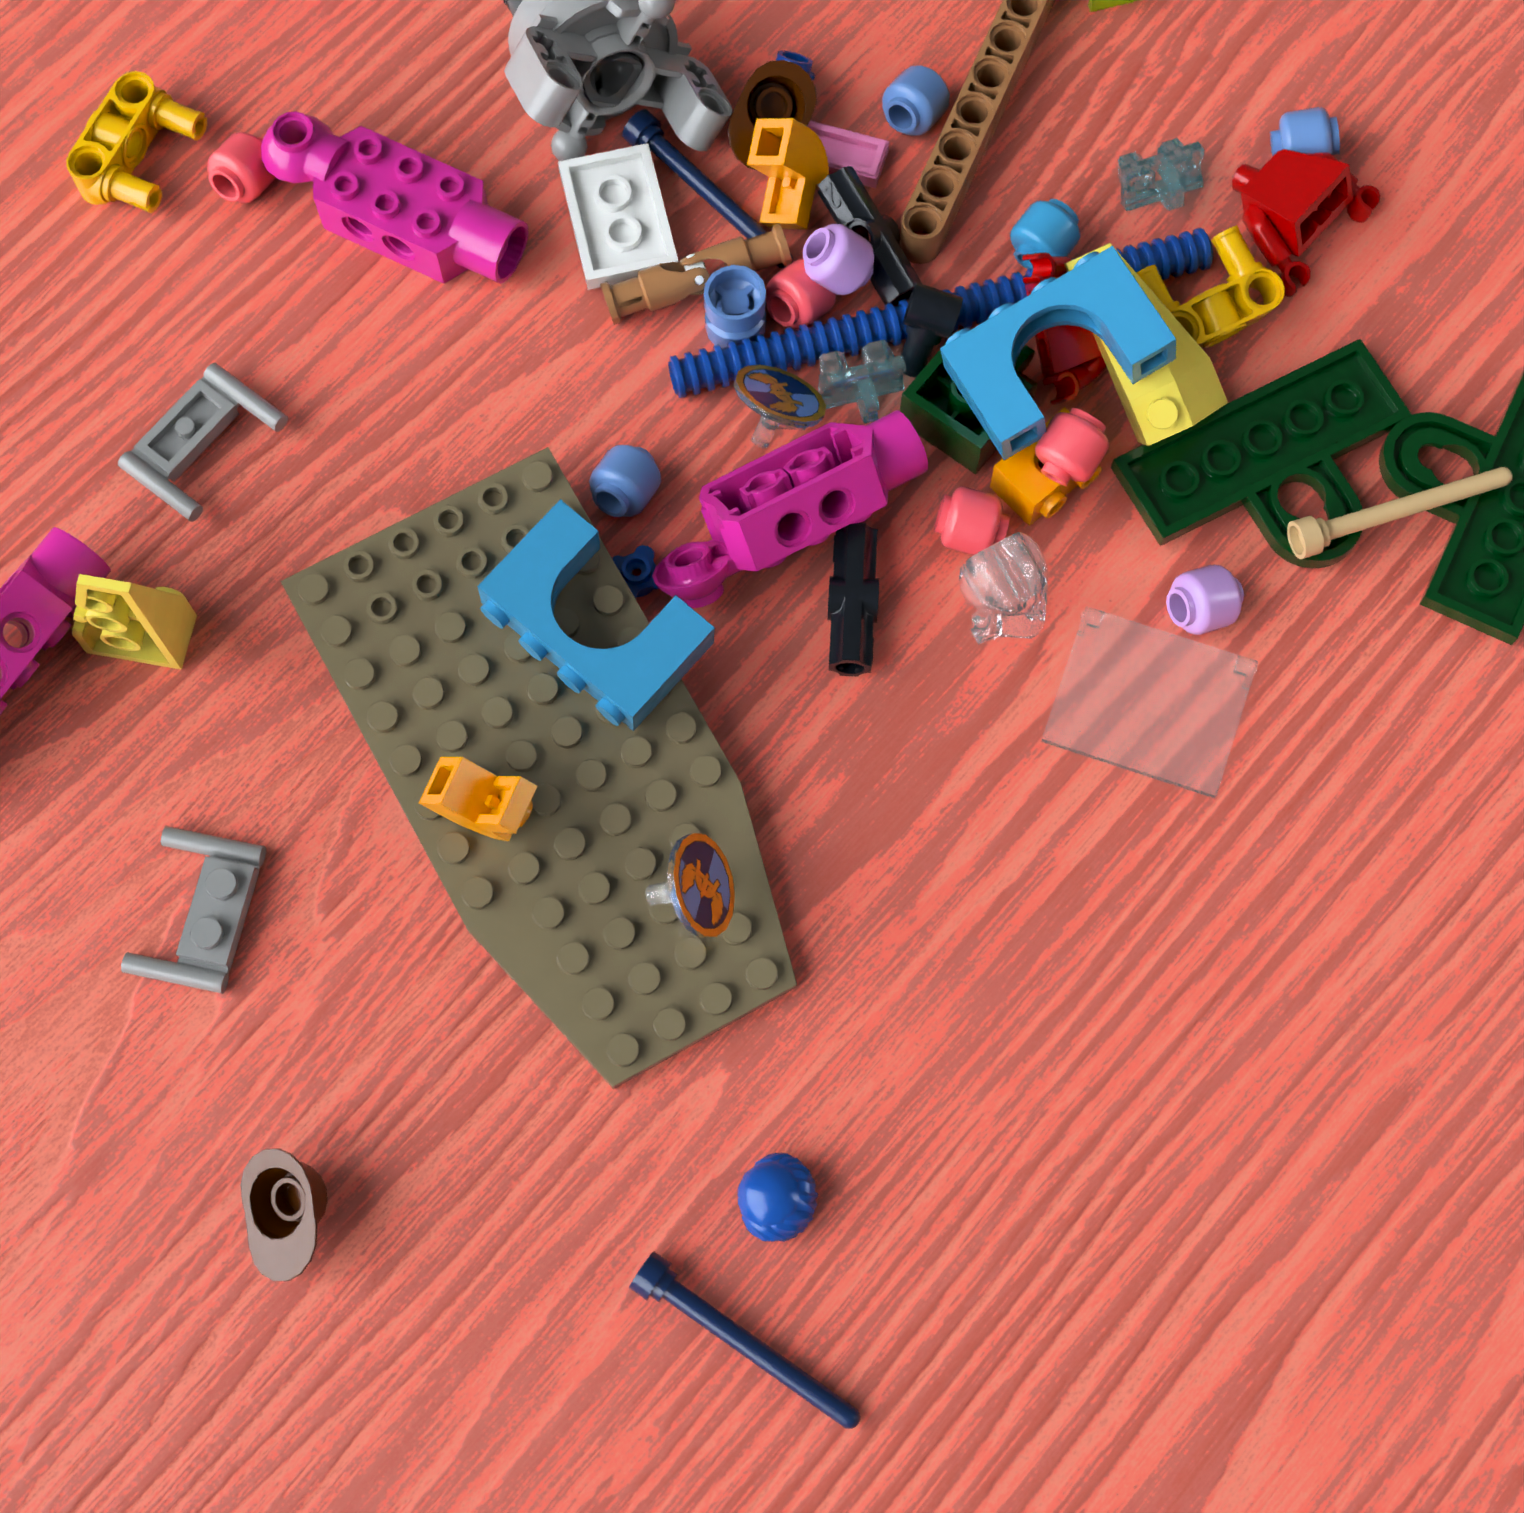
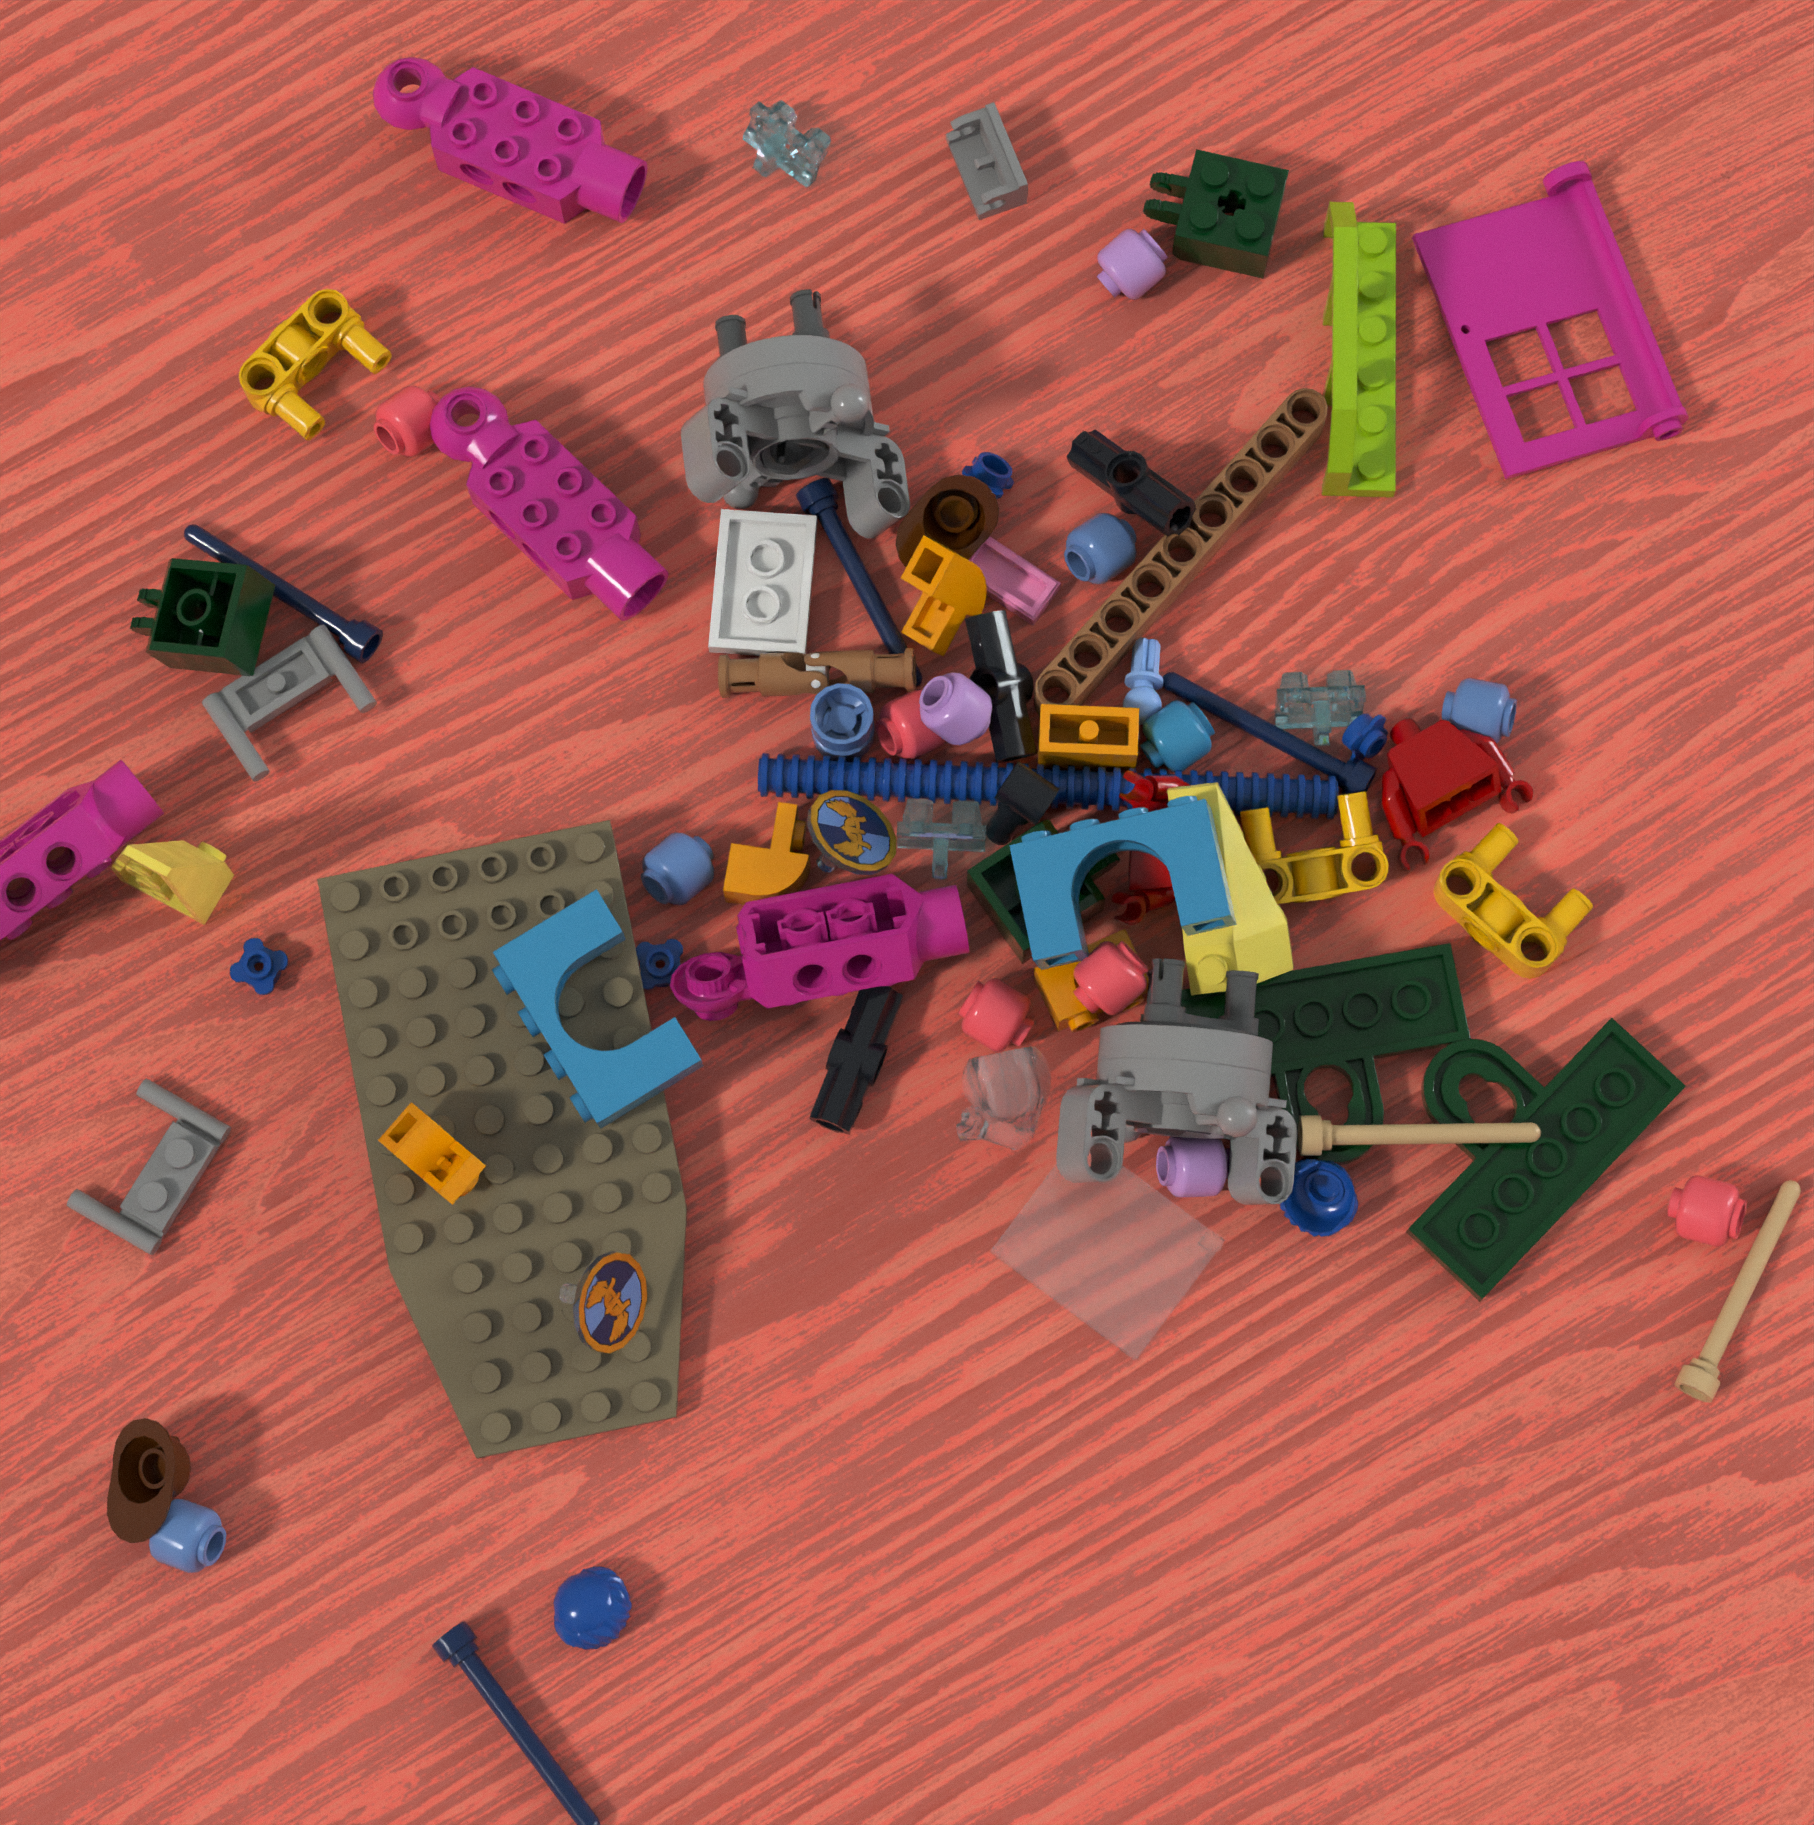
camera: 20 degrees right, 5 degrees up
(98, 382) = (207, 616): none -> dark green hinge
(249, 702) = (265, 979): none -> blue plate
(251, 367) = (357, 637): none -> dark blue piece
(345, 1258) = (189, 1537): none -> medium blue head
(708, 455) = (772, 872): none -> light orange brick
(925, 33) = (1131, 482): none -> black piece
(967, 252) = (1088, 736): none -> light orange brick
(995, 201) = (1144, 679): none -> light blue axle
(1129, 214) = (1351, 776): none -> dark blue piece
(1184, 509) = (1185, 1081): none -> light grey piece
(1212, 190) = (1365, 736): none -> blue plate
(1331, 593) = (1320, 1198): none -> blue hair
(1392, 304) = (1498, 916): none -> yellow piece

